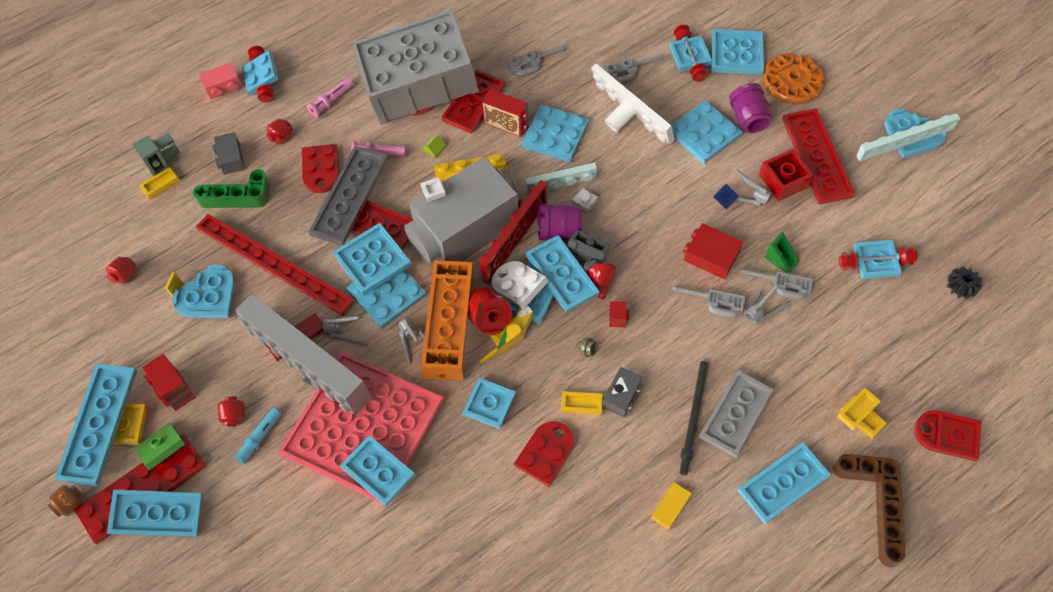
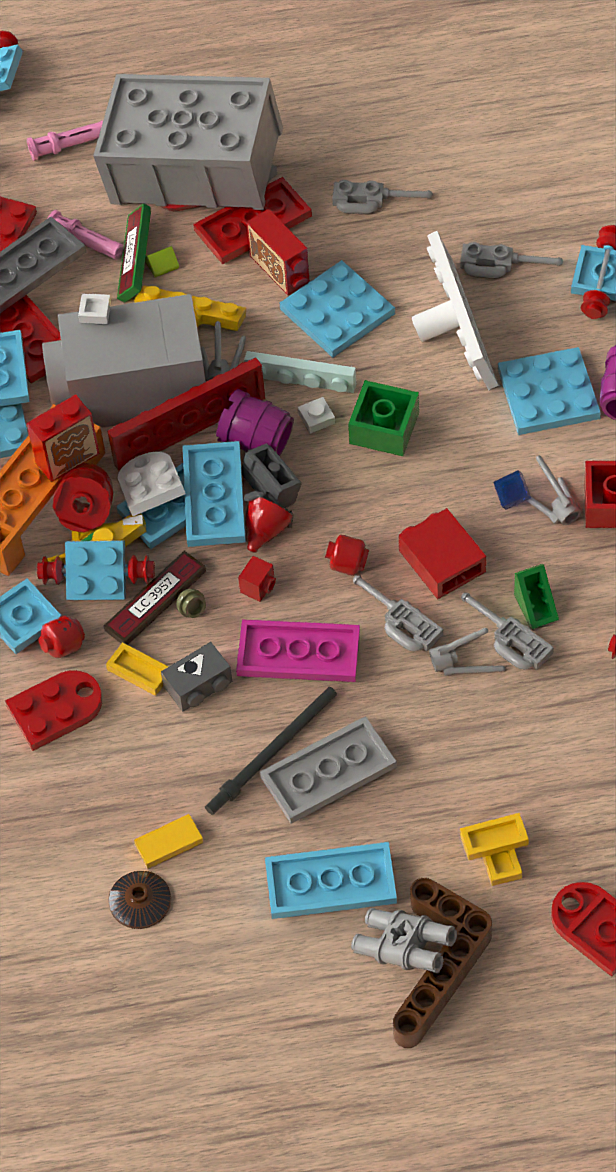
camera: 30 degrees right, 5 degrees down
(416, 148) = (134, 253): none -> tile
(463, 279) = (63, 438): none -> brick
(519, 353) = (95, 570): none -> medium azure plate
(524, 405) = (61, 636): none -> red head
(562, 354) = (154, 598): none -> tile
(629, 185) = (383, 418): none -> green brick
(660, 276) = (347, 555): none -> red head
(670, 347) = (298, 650): none -> dark pink plate
(674, 562) = (142, 911): none -> dish
(849, 510) = (404, 940): none -> light grey pin

